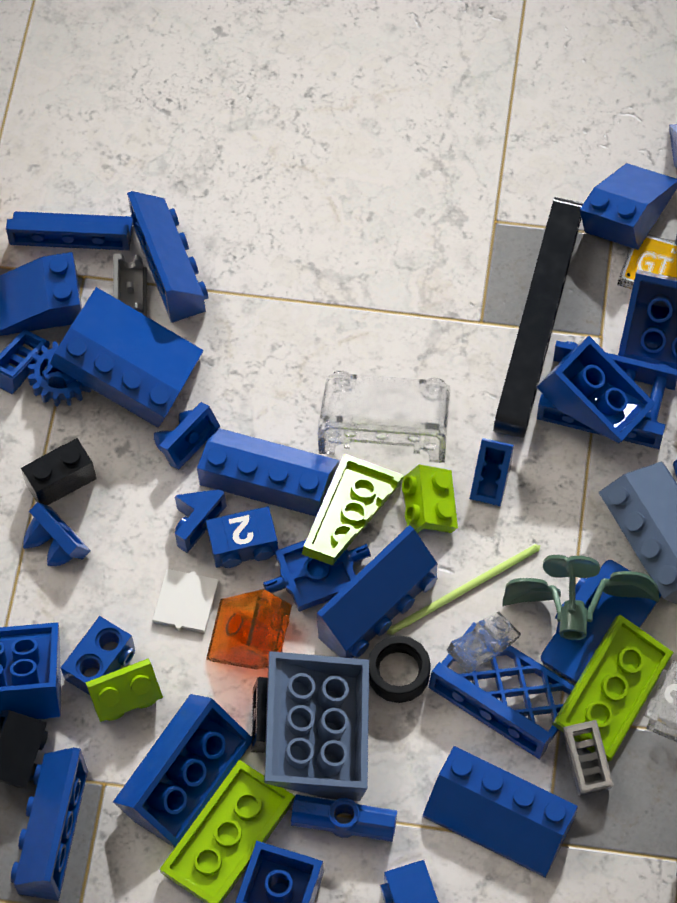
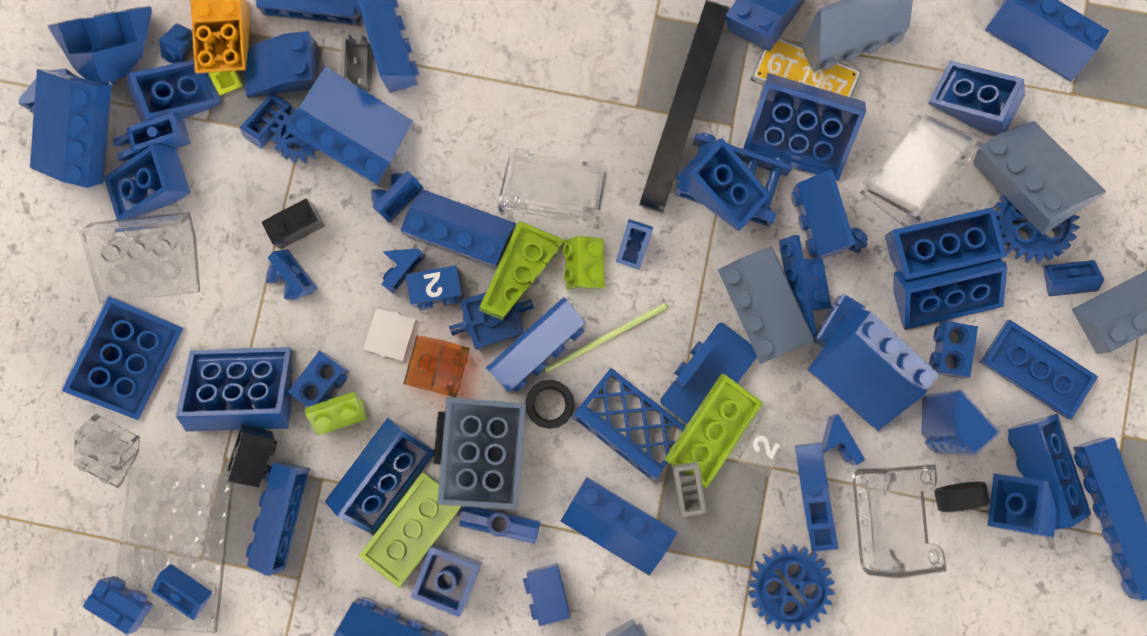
camera: 10 degrees right, 20 degrees up
(484, 643) = (616, 388): clear slope -> none
(574, 615) = (688, 381): sand green plant -> none

